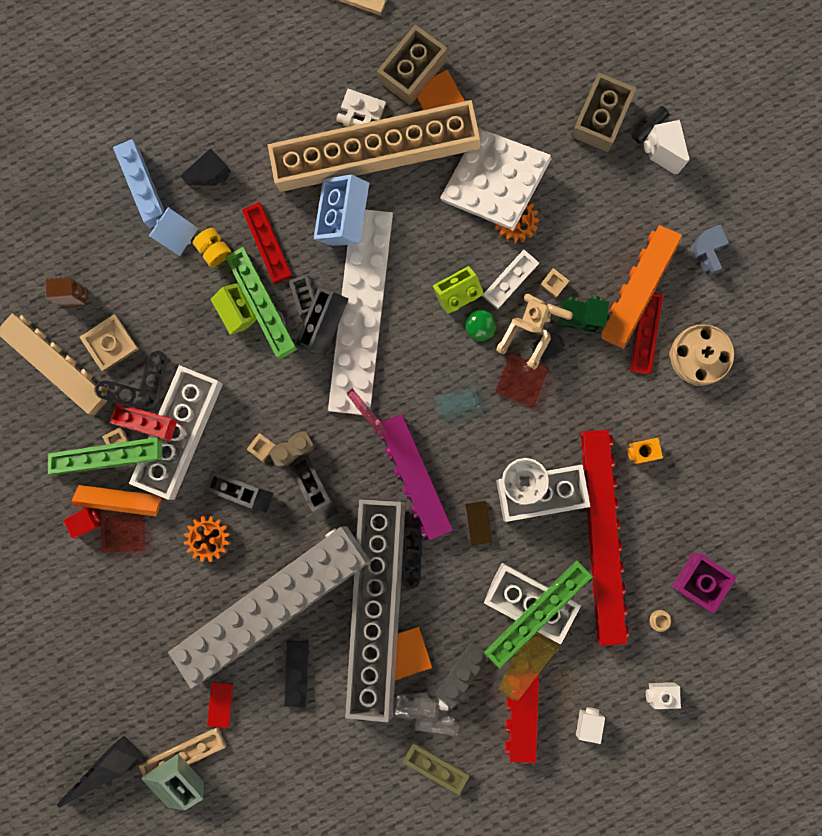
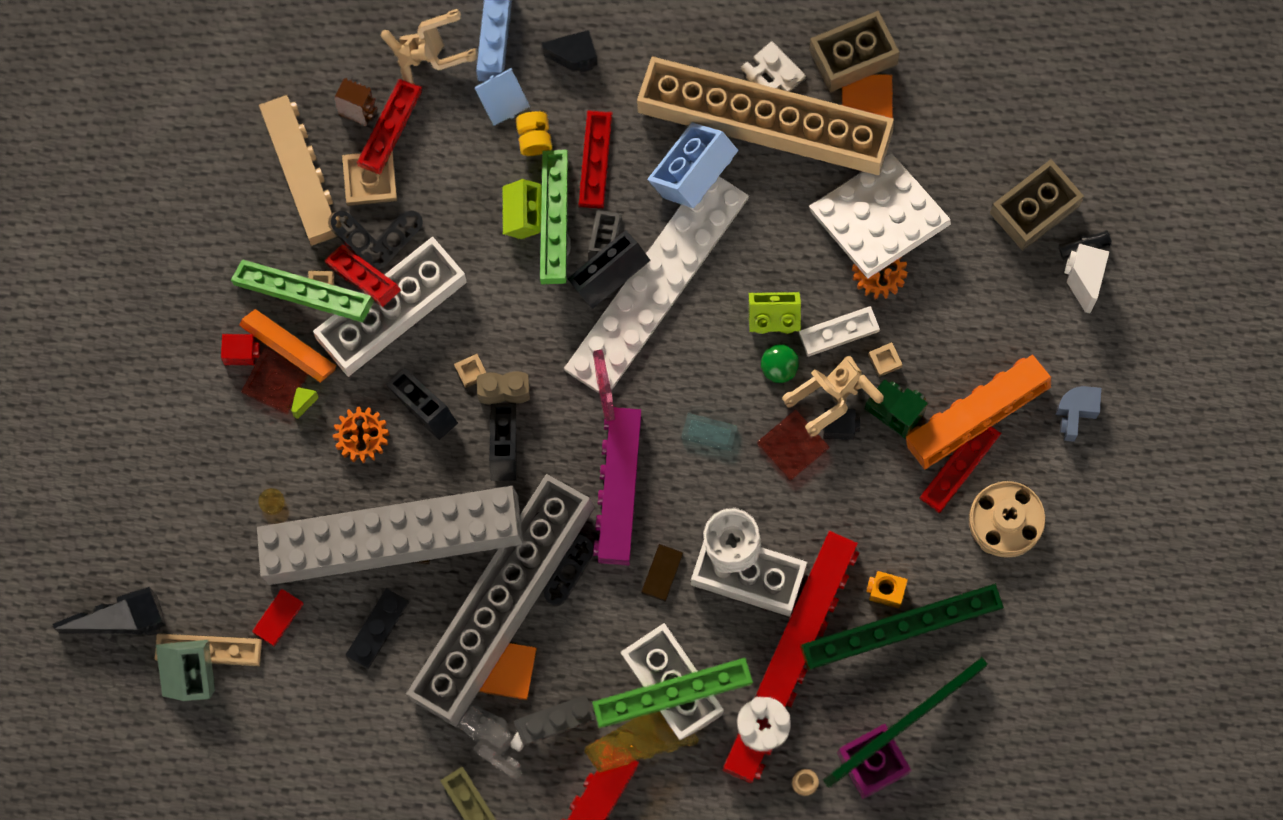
camera: 30 degrees right, 10 degrees down
(95, 223) = (426, 46): none -> tan piece
(102, 297) = (389, 126): none -> red tile
(150, 537) = (302, 401): none -> lime slope
(168, 621) = (271, 501): none -> clear yellow tile
(623, 608) = (768, 738): none -> white plate
(670, 474) = (901, 626): none -> dark green tile
(716, 548) = (904, 723): none -> dark green tile

